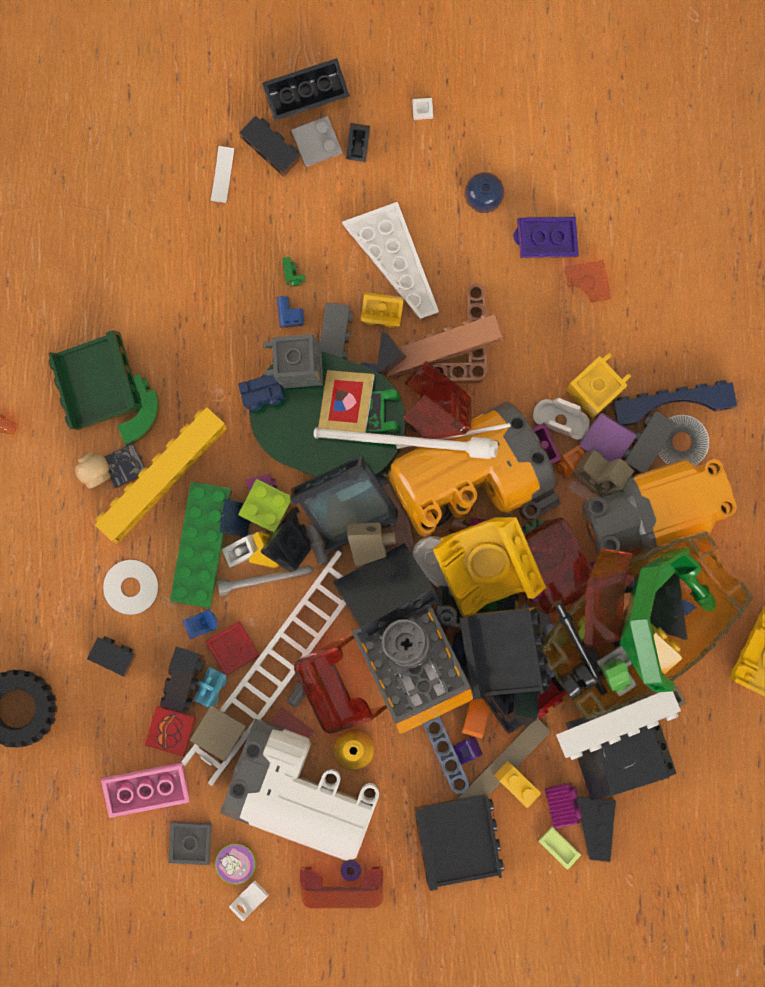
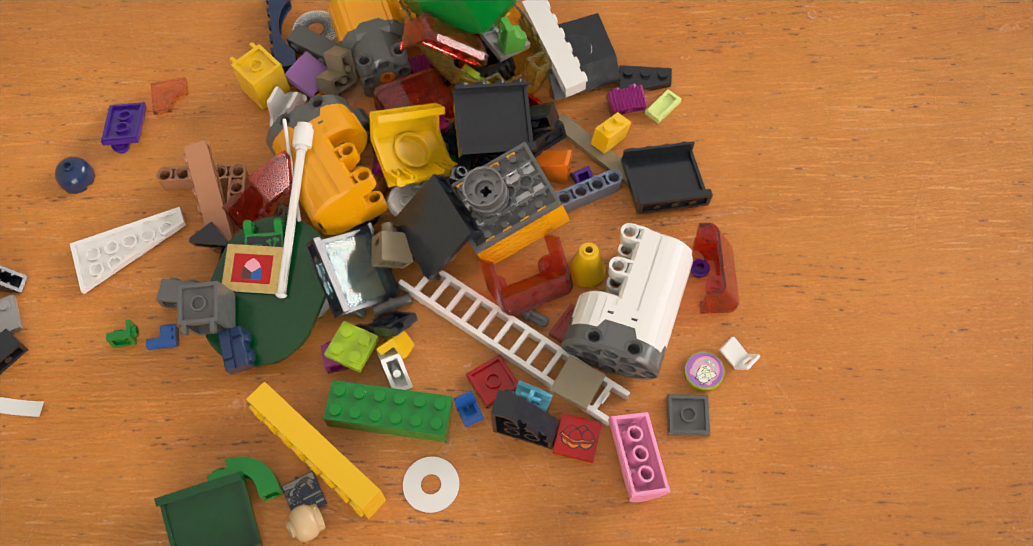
camera: 85 degrees left, 20 degrees down
(111, 656) = (502, 497): black brick -> none
(226, 586) = (431, 386): light grey piece -> none
(231, 521) = (367, 377): dark blue piece -> none
(382, 309) = (170, 254): yellow bracket -> none
(566, 620) = (463, 66): black bar -> none
(577, 680) = (516, 68): black wheel -> none

